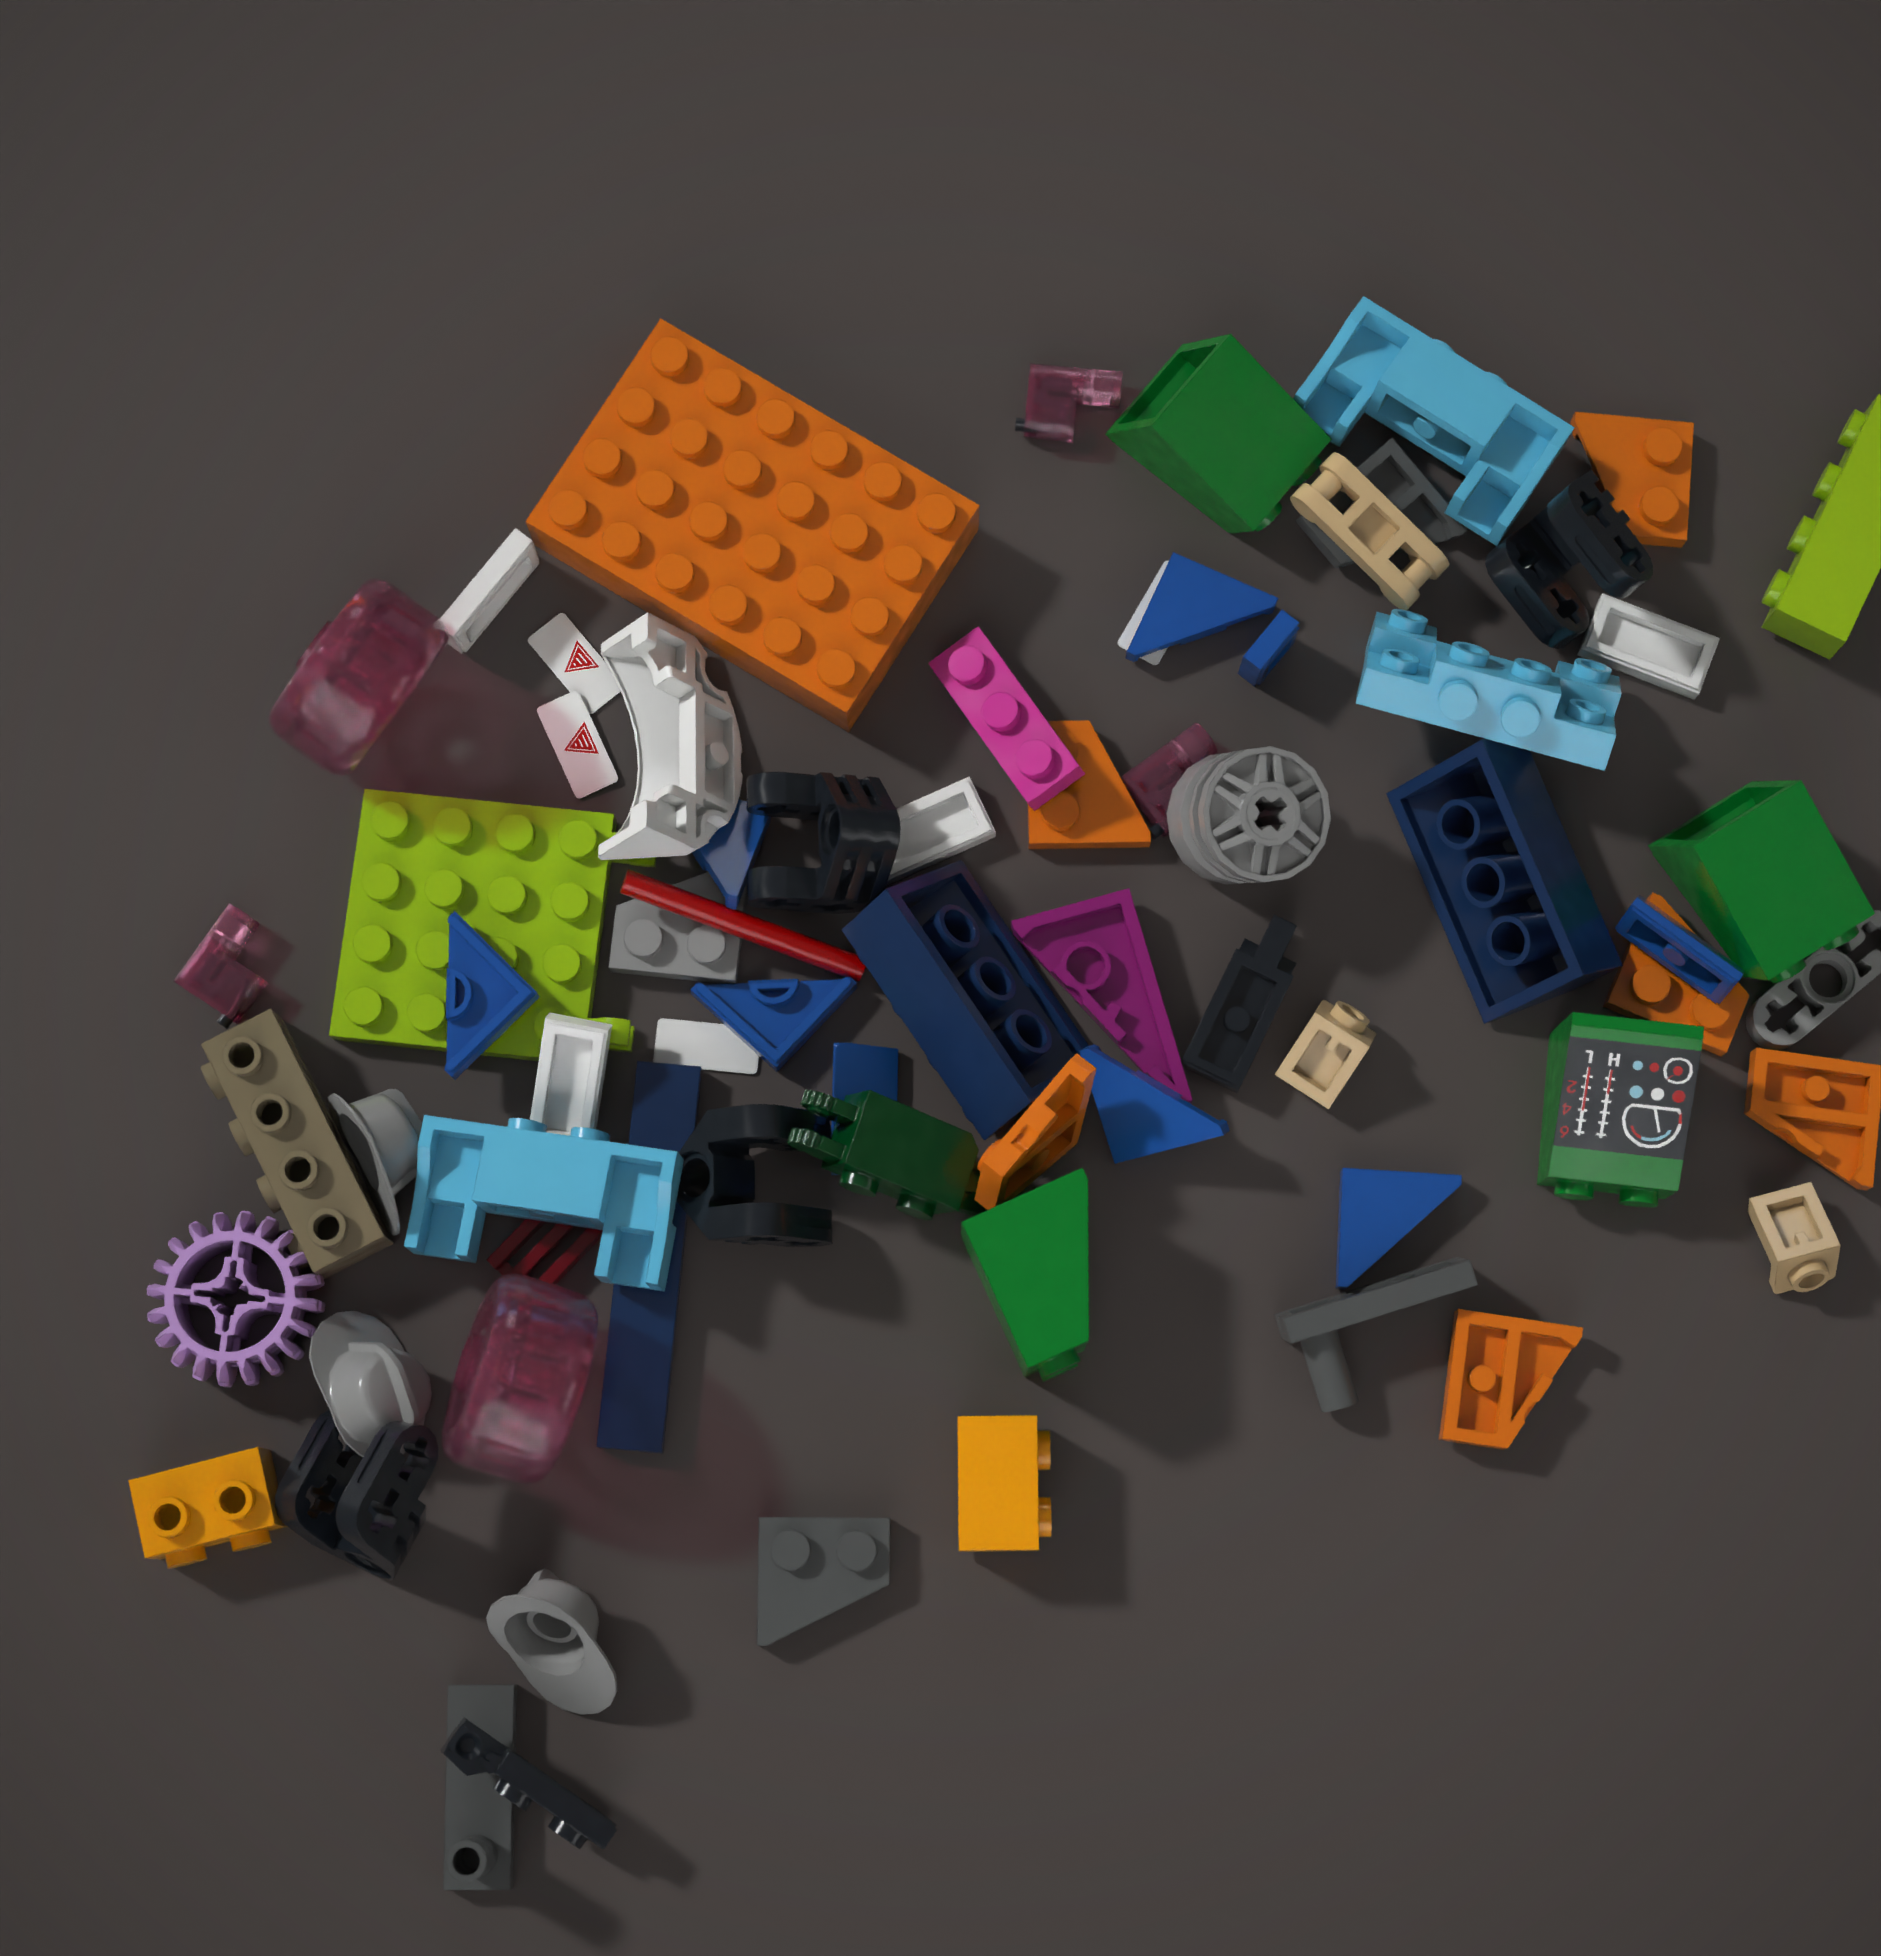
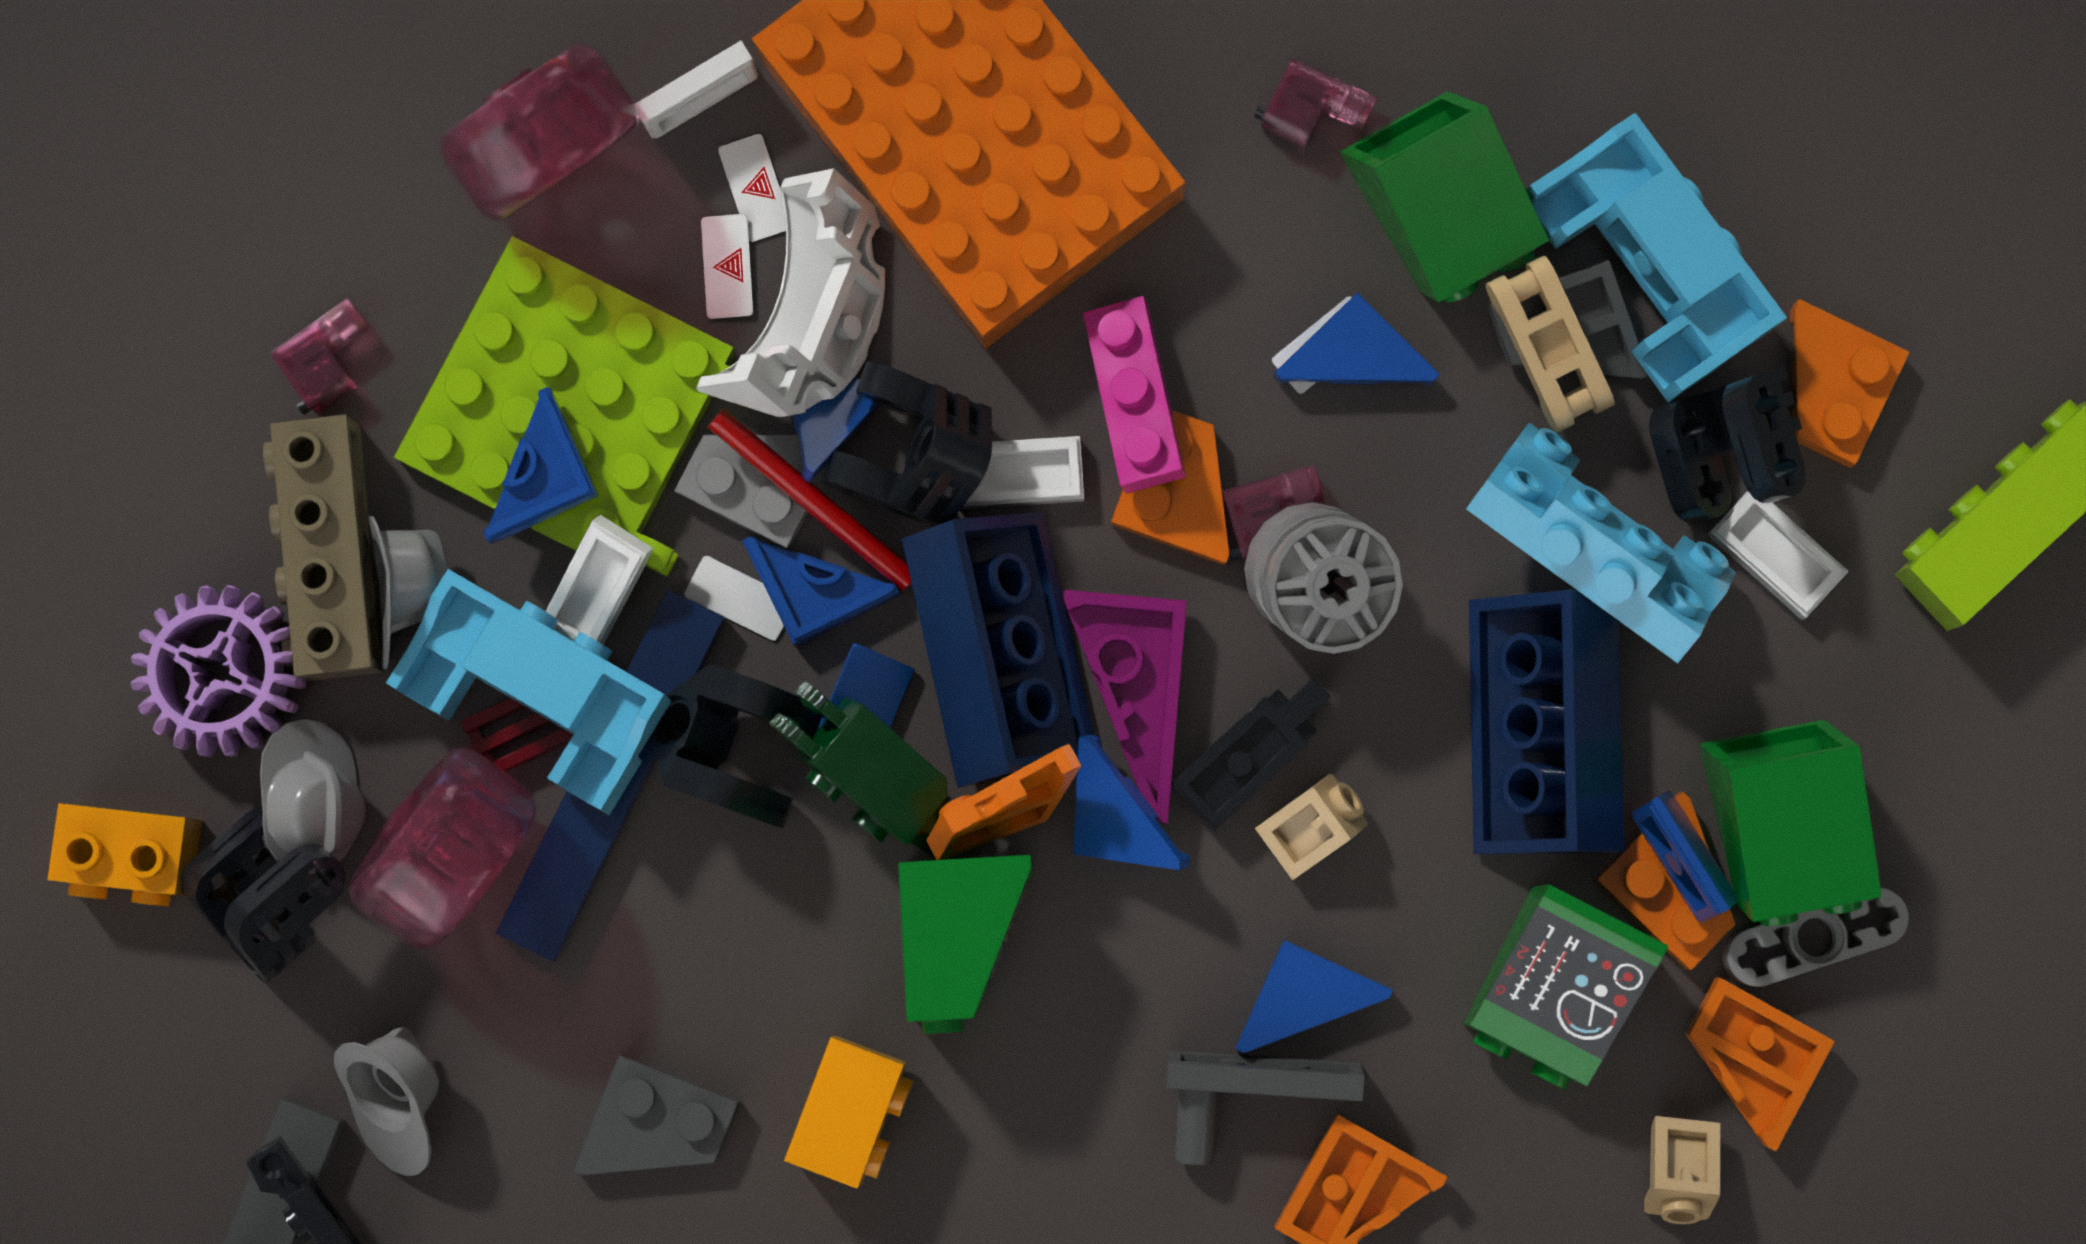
camera: 30 degrees right, 5 degrees up
(1269, 648) = (1410, 420): blue tile -> none

